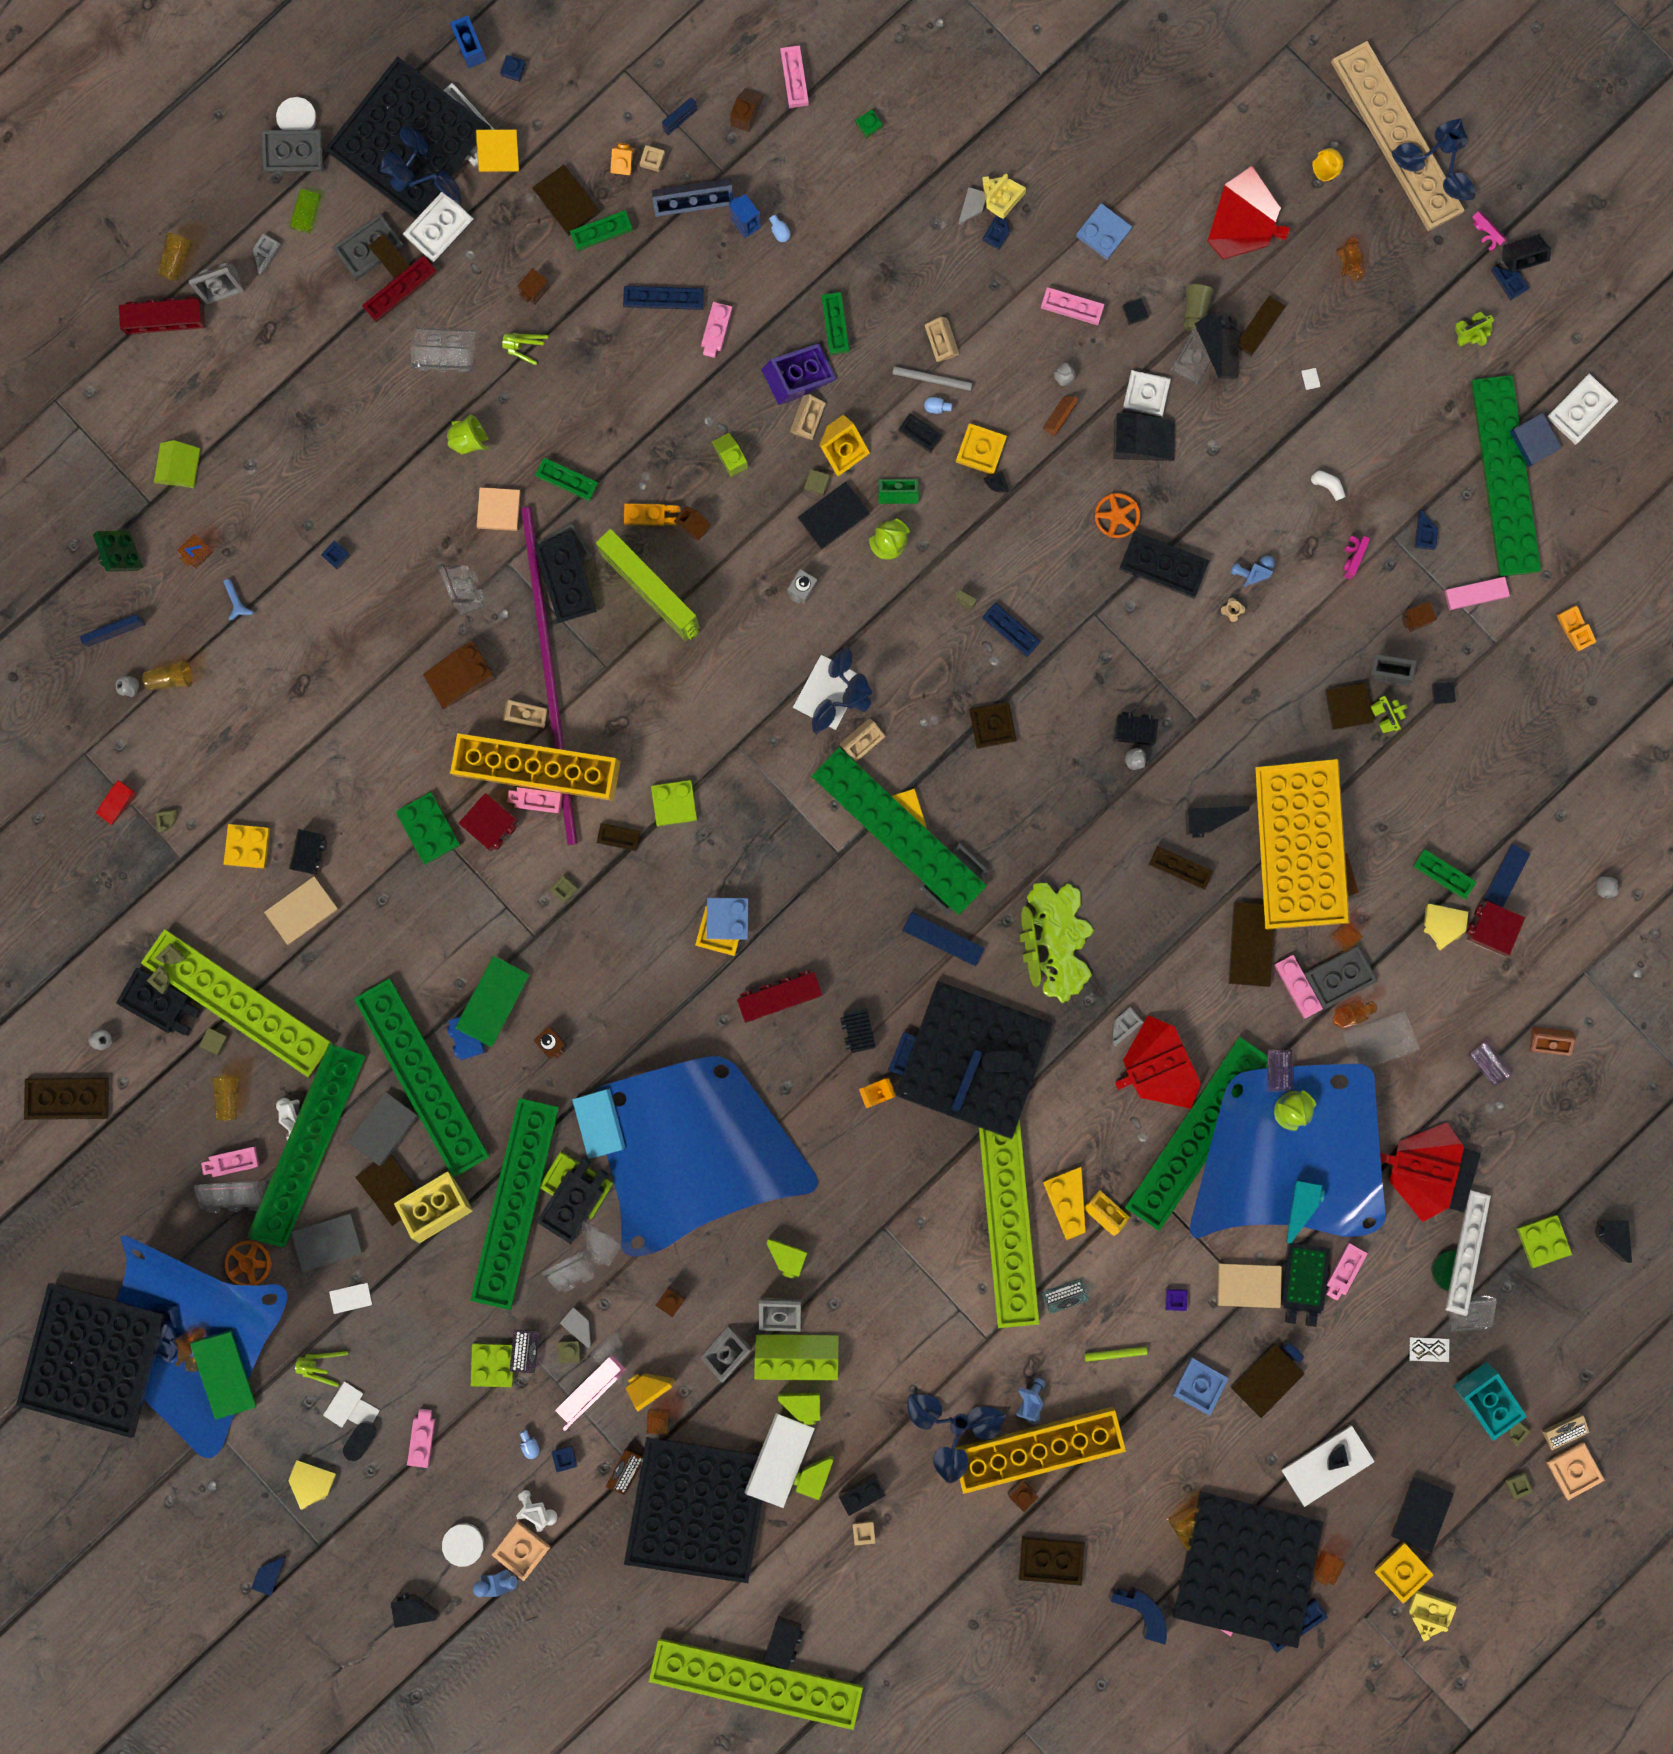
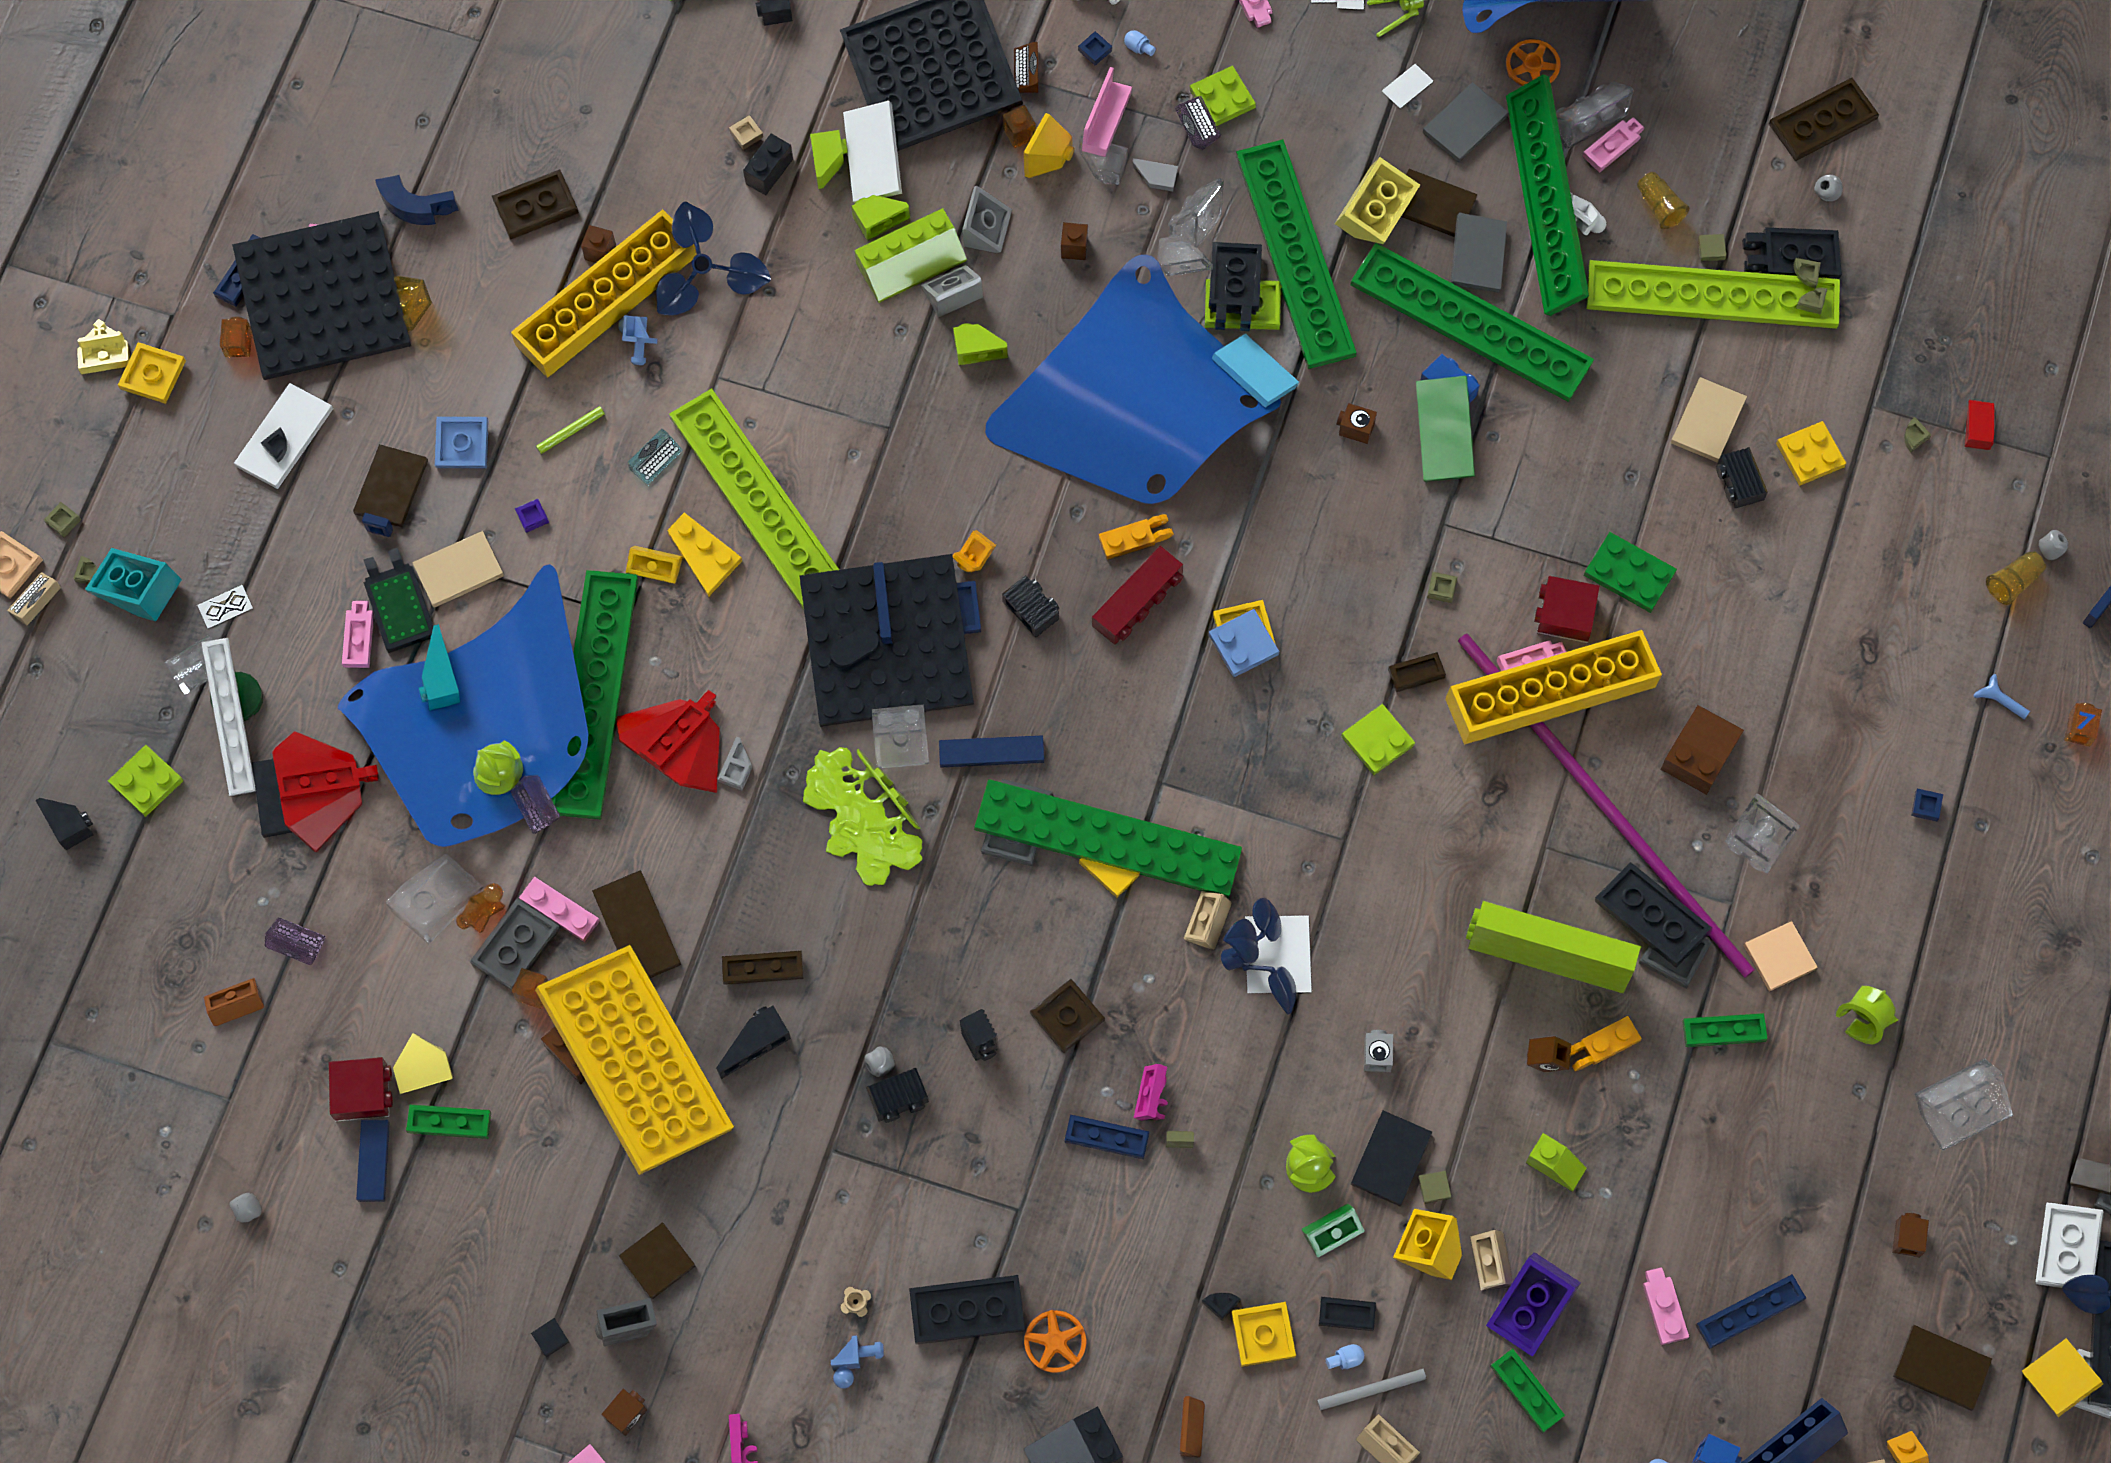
camera: 150 degrees right, 15 degrees down
(399, 289) = (2063, 1147): dark red plate -> none
(514, 341) = (1888, 1155): lime plant -> none
(525, 714) = (1603, 746): tan slope -> none
(569, 1351) = (1151, 146): olive plate -> none
(601, 230) = (1876, 1350): green plate -> none
(758, 1045) = (1134, 536): none -> light orange hinge
(967, 641) = (1151, 1087): none -> dark pink plate
(1001, 982) = (900, 736): none -> clear slope
(1062, 736) = (979, 1035): none -> black brick
(1384, 706) = (602, 1277): lime hips -> none
(1422, 1514) = (156, 439): black tile -> none

